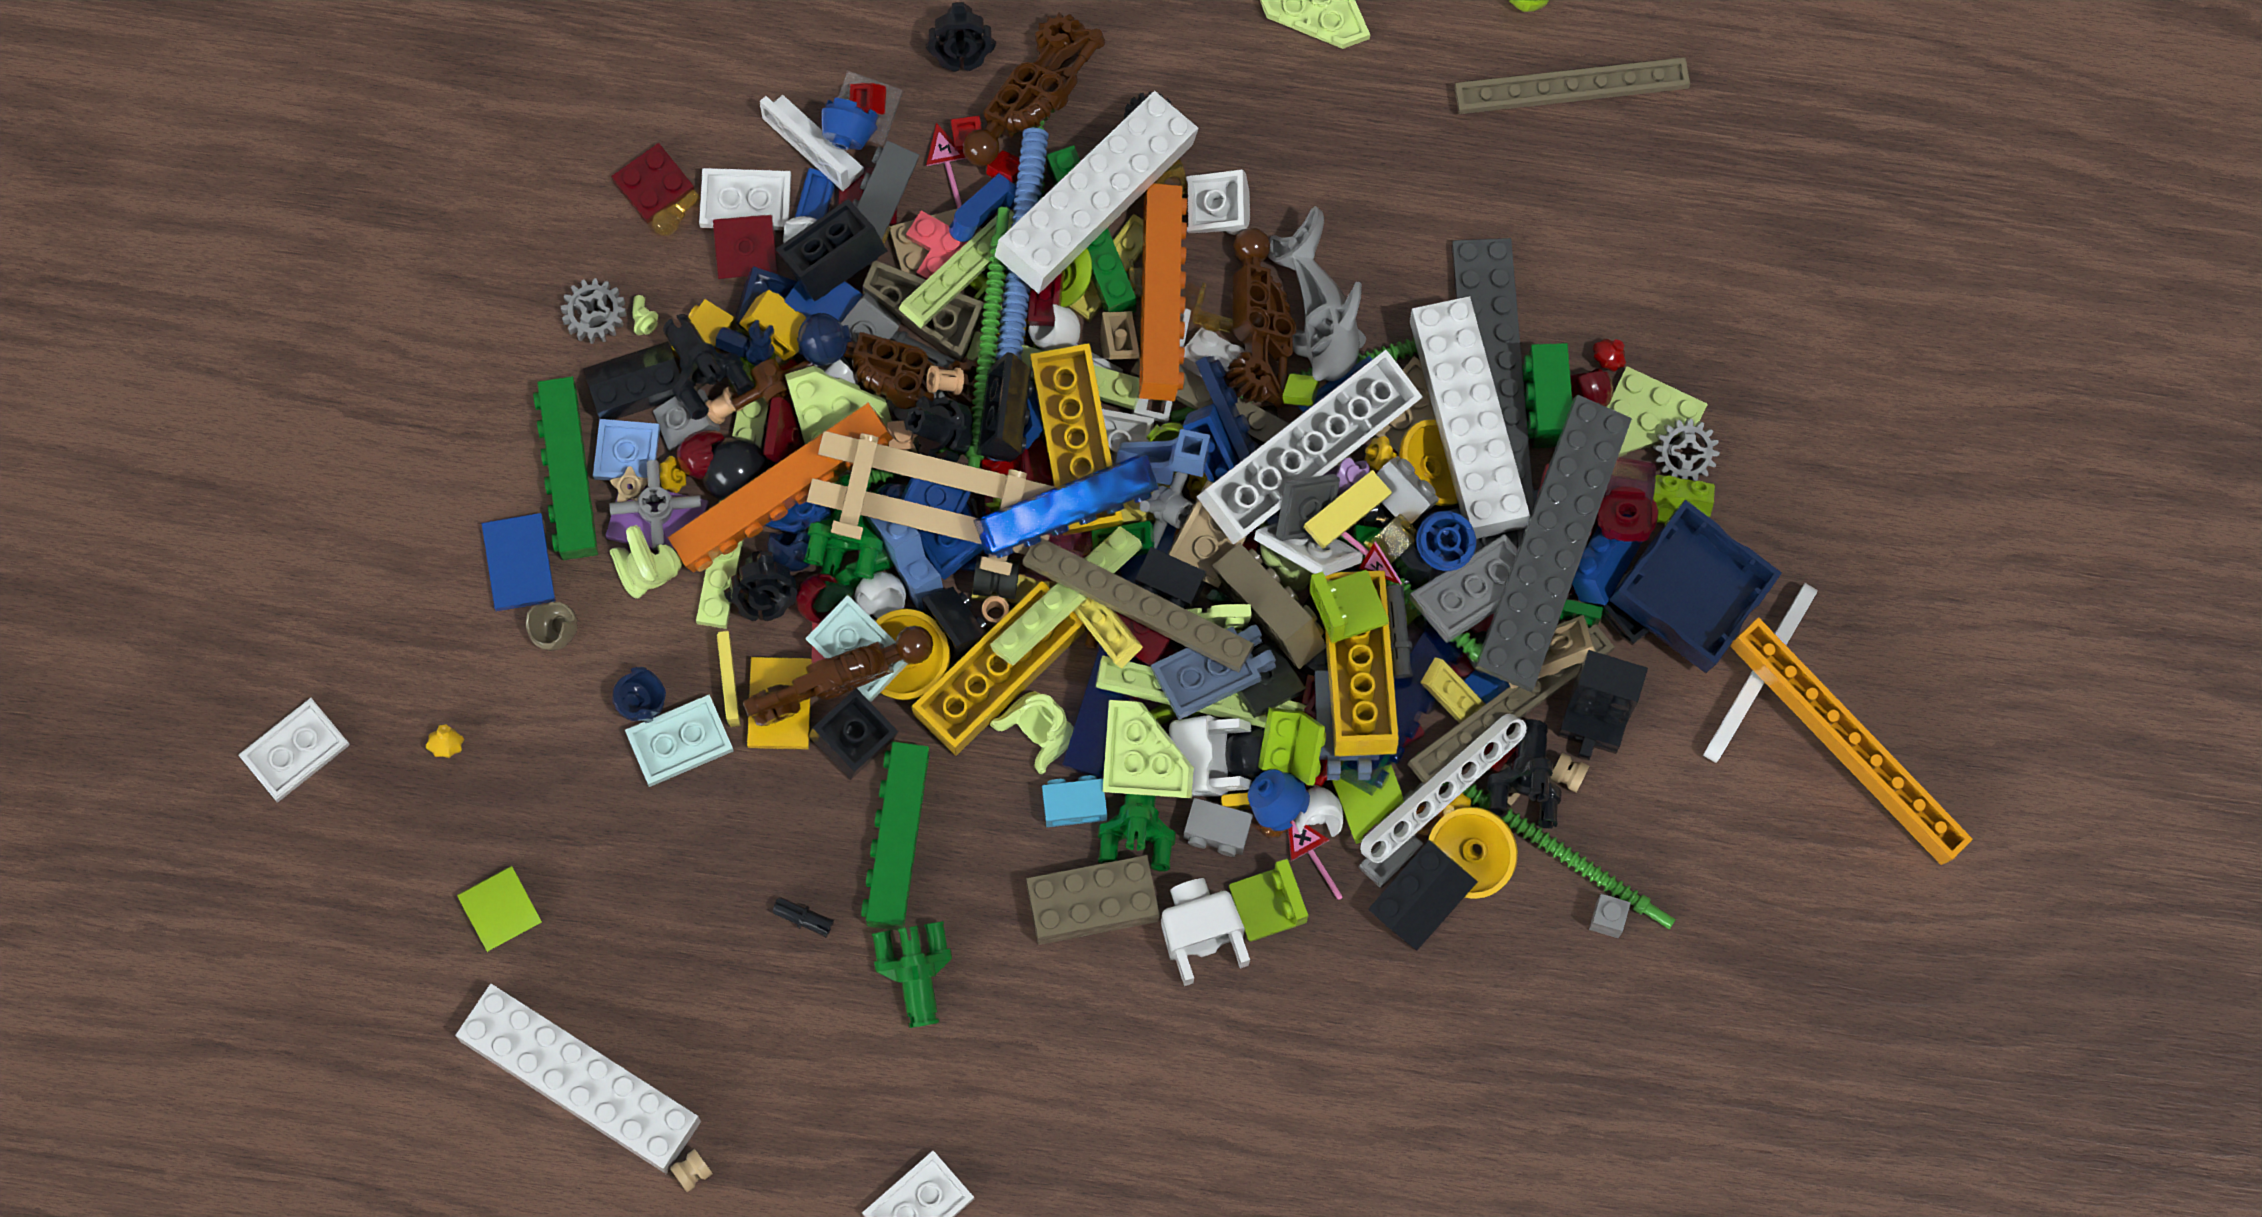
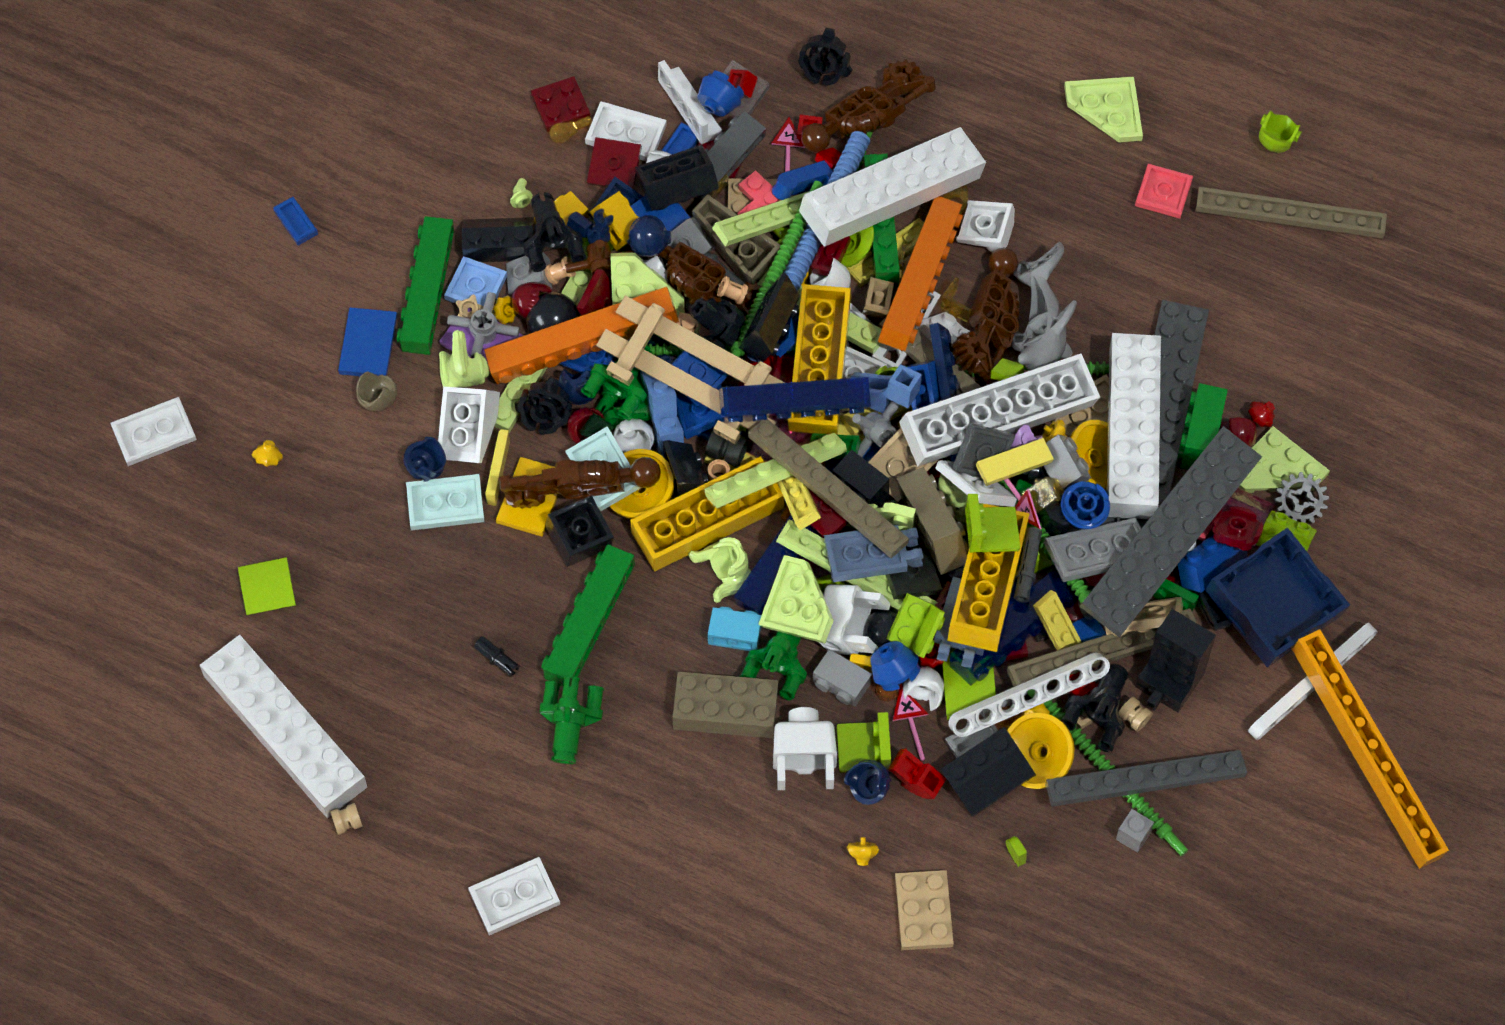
camera: 20 degrees right, 10 degrees down
(376, 427) = (295, 221): none -> blue tile
(590, 298) = (484, 181): light grey gear -> none
(674, 634) = (467, 422): none -> white slope
(1288, 947) = (868, 781): none -> dark blue cap
(1305, 1031) = (862, 851): none -> yellow piece
(1341, 922) = (915, 776): none -> red brick
(1395, 1081) = (924, 910): none -> tan plate
(1414, 98) = (1164, 191): none -> coral plate
(1481, 978) = (1016, 850): none -> lime tile
(1604, 849) = (1145, 778): none -> dark grey plate

